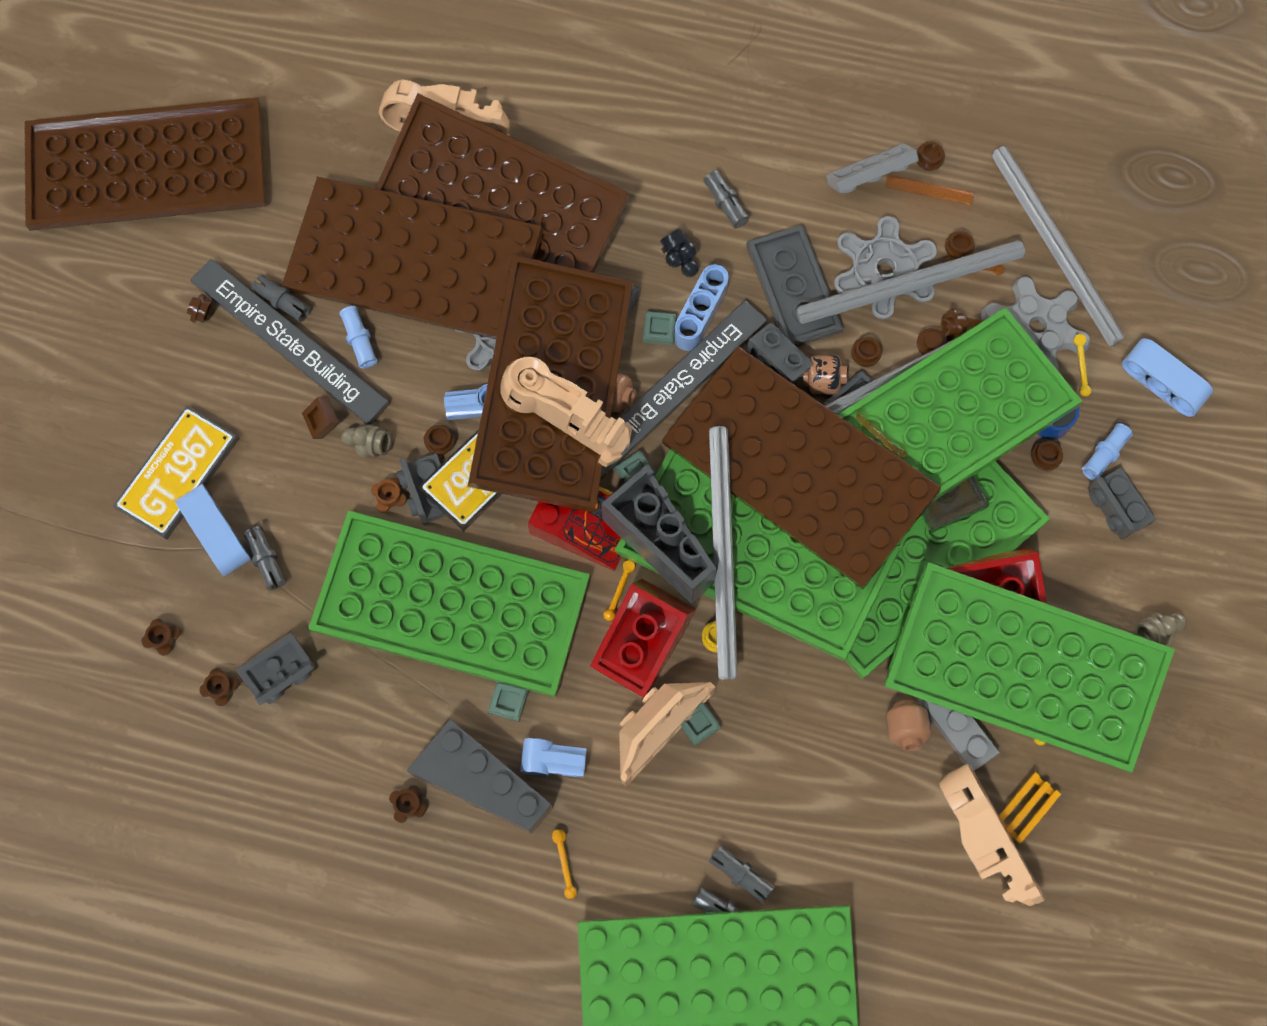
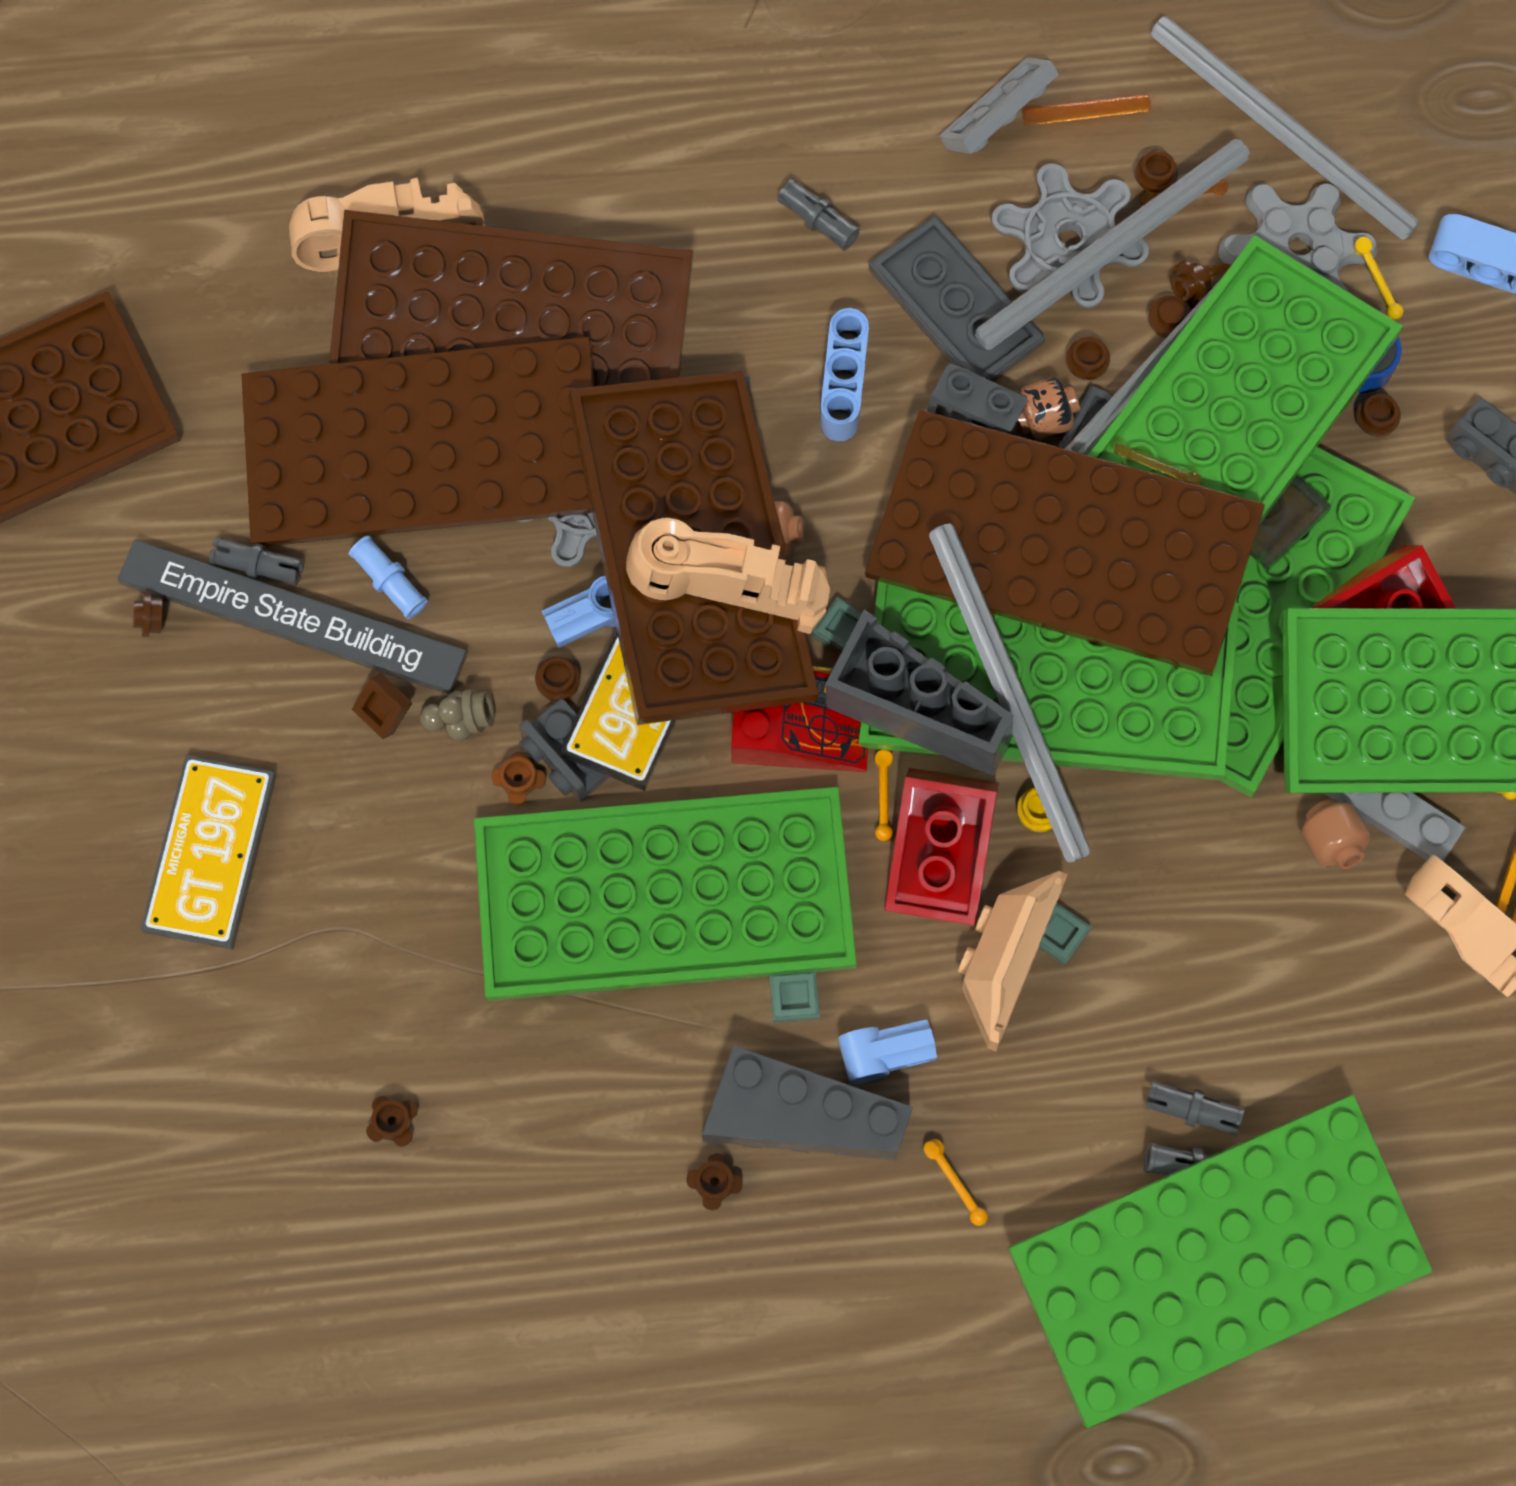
camera: 20 degrees left, 0 degrees up
(155, 629) = (272, 1074): reddish brown plate -> none
(213, 530) = (297, 911): light blue beam -> none
(264, 558) = (382, 924): dark grey pin -> none
(276, 669) = (464, 1067): dark grey bracket -> none
(659, 328) = (796, 422): sand green tile -> none
(680, 252) = (786, 309): black piece -> none
(689, 375) = (867, 461): dark grey tile -> none
(930, 156) = (1071, 62): reddish brown plate -> none
(1107, 451) = (1454, 382): light blue pin -> none

